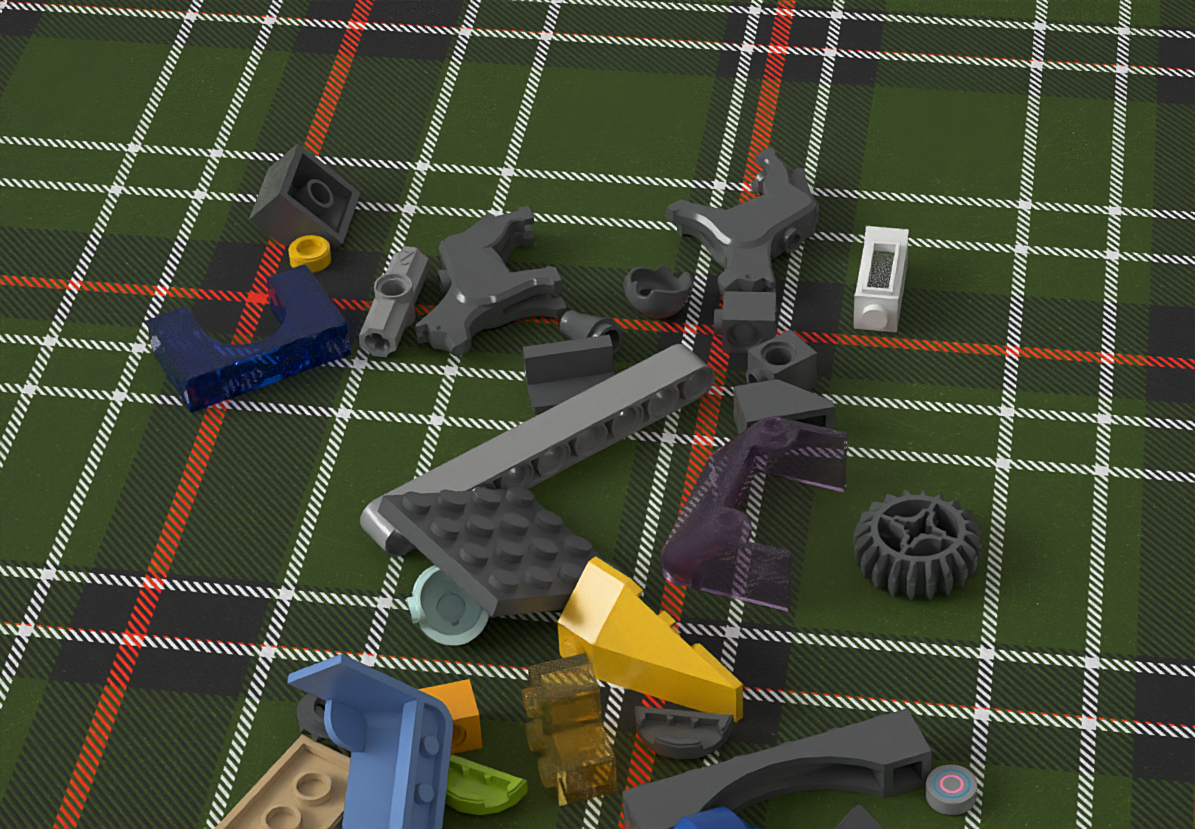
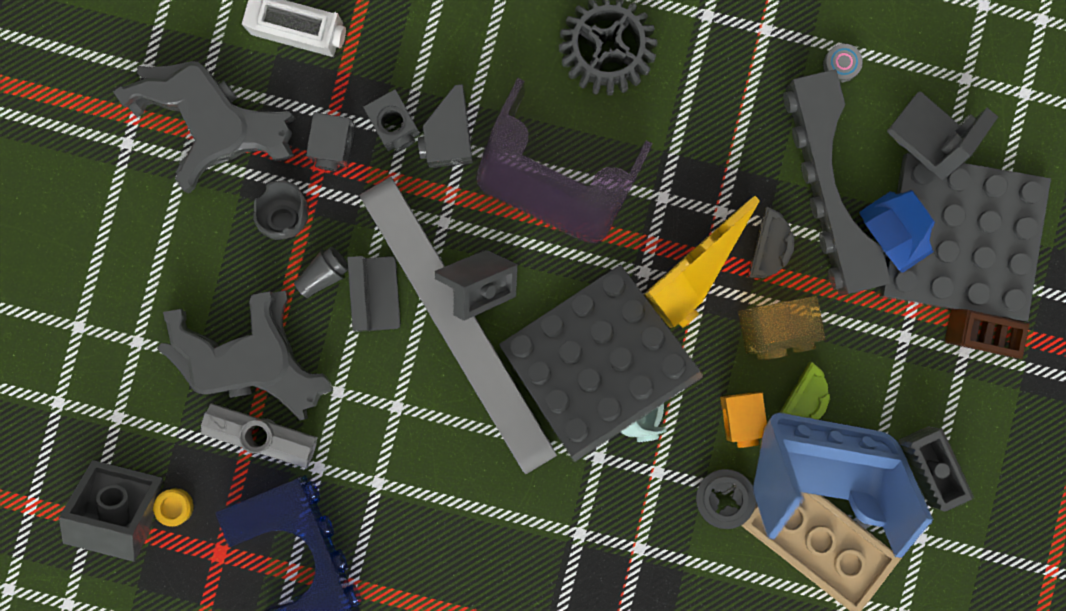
camera: 85 degrees left, 45 degrees up
(591, 446) = (479, 282): none -> dark grey panel

